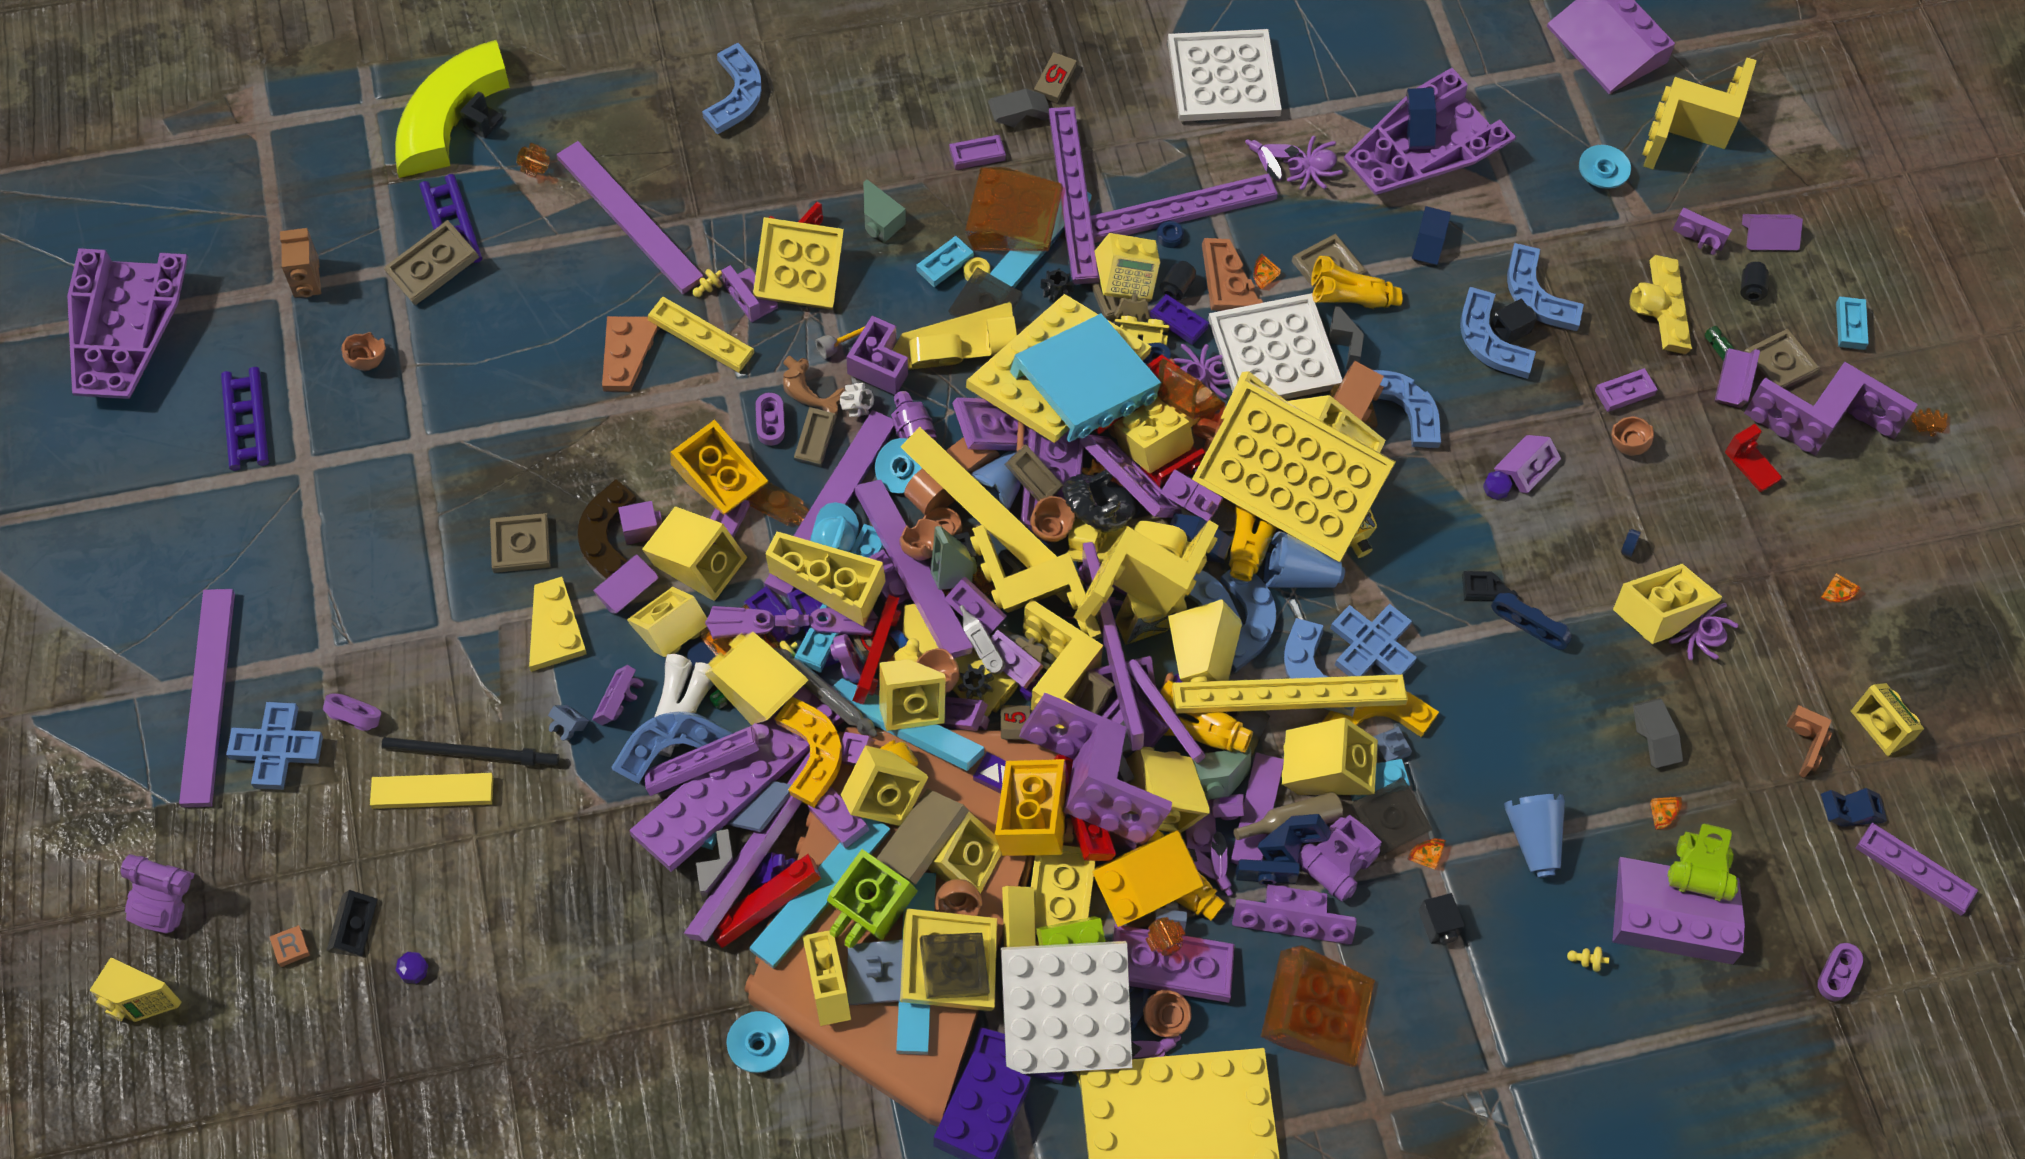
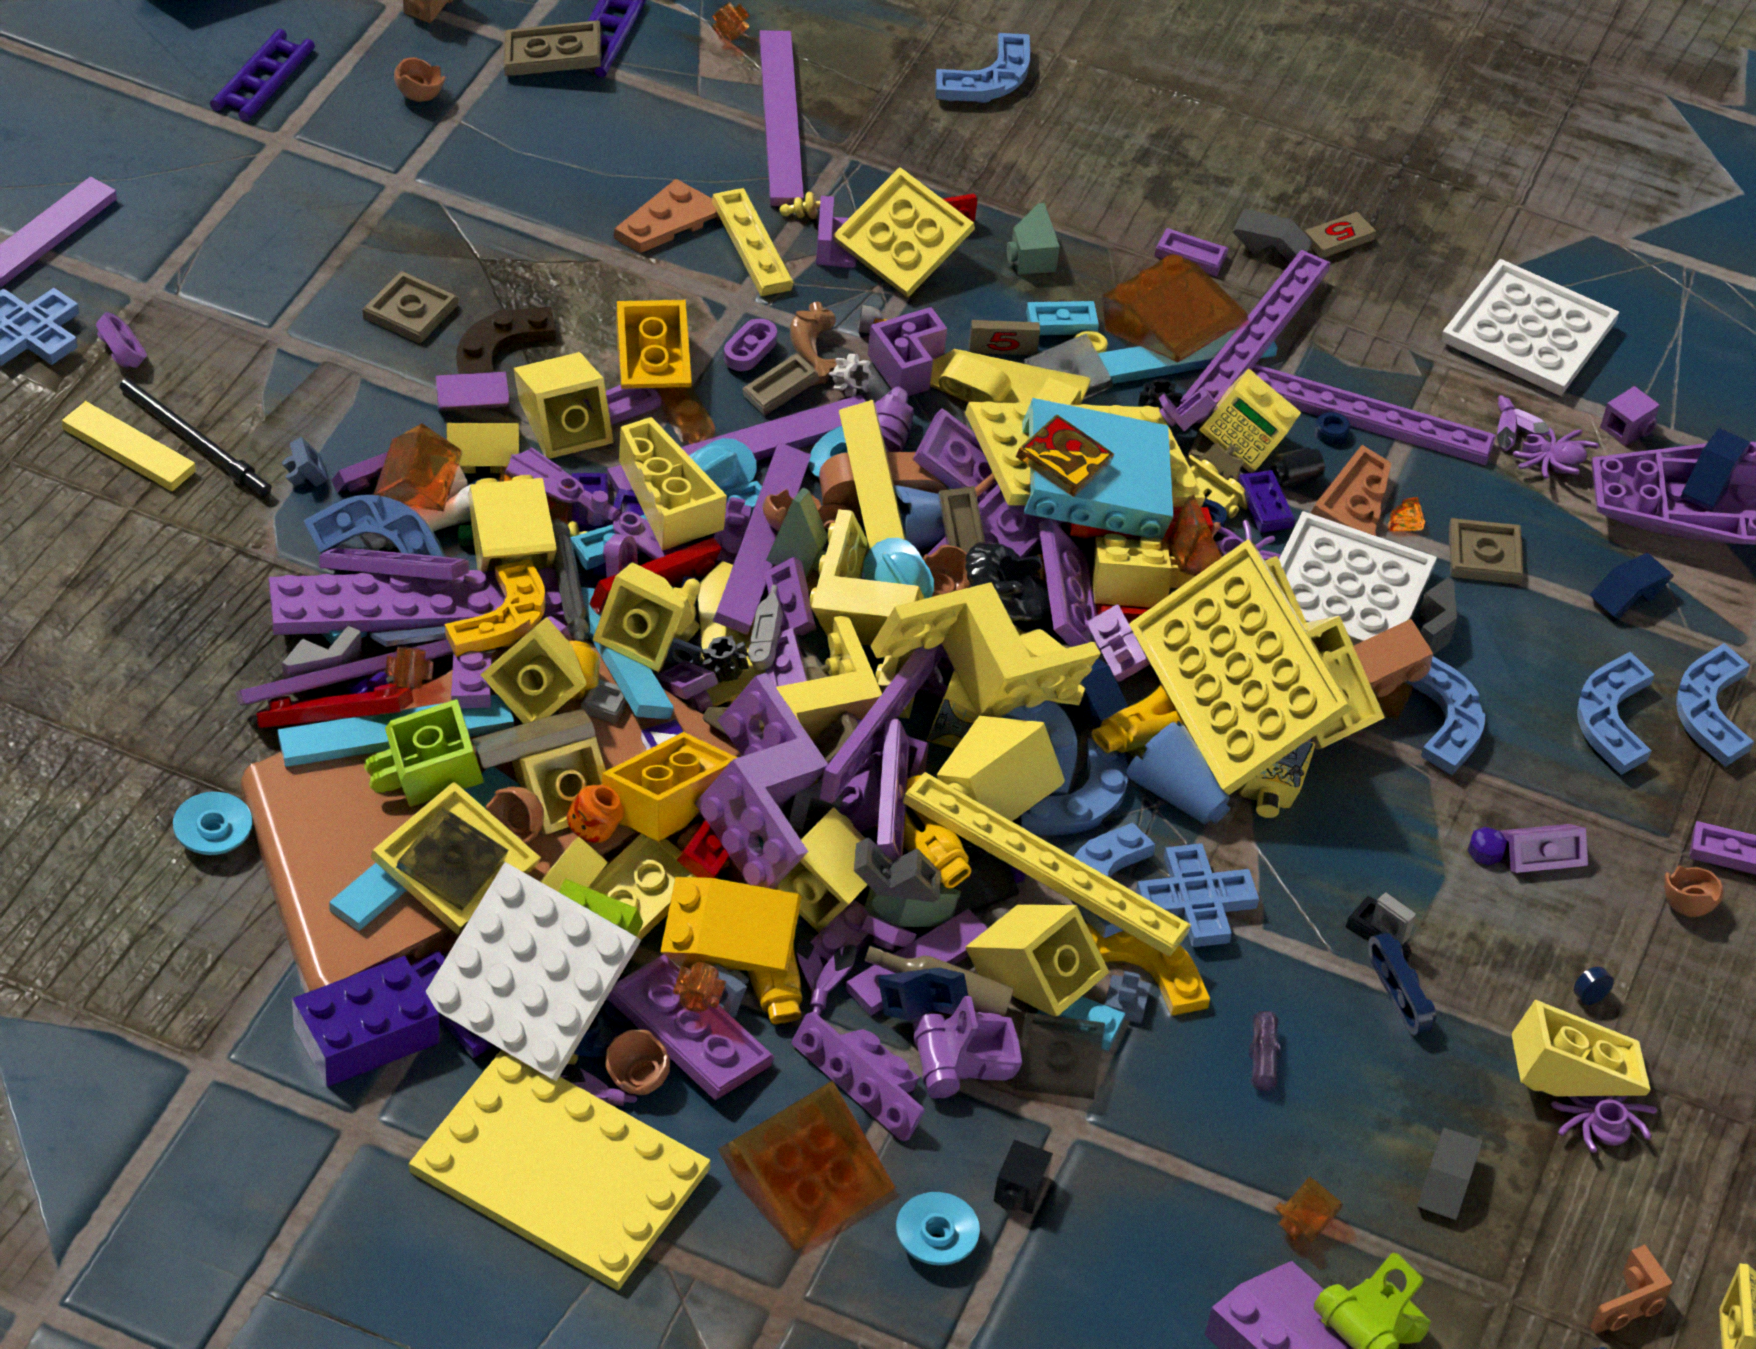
camera: 35 degrees right, 15 degrees down
(554, 626) = (372, 389): light yellow wing -> none
(639, 522) = (534, 345): medium lavender brick -> none
(657, 679) = (419, 469): none -> clear orange slope
(791, 837) = (409, 667): none -> clear orange gear
(826, 978) = (320, 800): light yellow slope -> none
(874, 972) = (370, 825): sand blue piece -> none
(923, 302) = (1004, 337): none -> dark tan tile
(933, 767) = (605, 702): none -> light grey tile
(944, 662) = (697, 624): nougat hair -> none
(1006, 863) = (595, 813): none -> orange head
(1025, 540) = (898, 562): none -> medium azure piece
(1072, 386) = (1065, 455): none -> tile
(1089, 284) = (1193, 410): none -> medium lavender bracket
(1217, 769) = (906, 877): none -> dark grey slope
(1267, 871) = (873, 1015): dark blue plate -> none
(1335, 106) = (1630, 416): none -> medium lavender brick
(1340, 285) = (1476, 565): yellow piece -> none
(1427, 853) = (1071, 1117): clear orange tile -> none
(1432, 980) = (940, 1215): none -> medium azure dish
(1496, 725) = (1264, 1050): none -> clear purple pin
(1498, 581) = (1393, 918): none -> light grey tile
(1514, 321) = (1653, 711): black brick -> none
(1539, 831) = (1214, 1164): medium blue cone -> none
(1586, 958) = (1161, 1326): light yellow hair -> none
(1606, 818) = (1308, 1211): none -> clear orange bracket
(1665, 810) = (1386, 1245): clear orange tile -> none

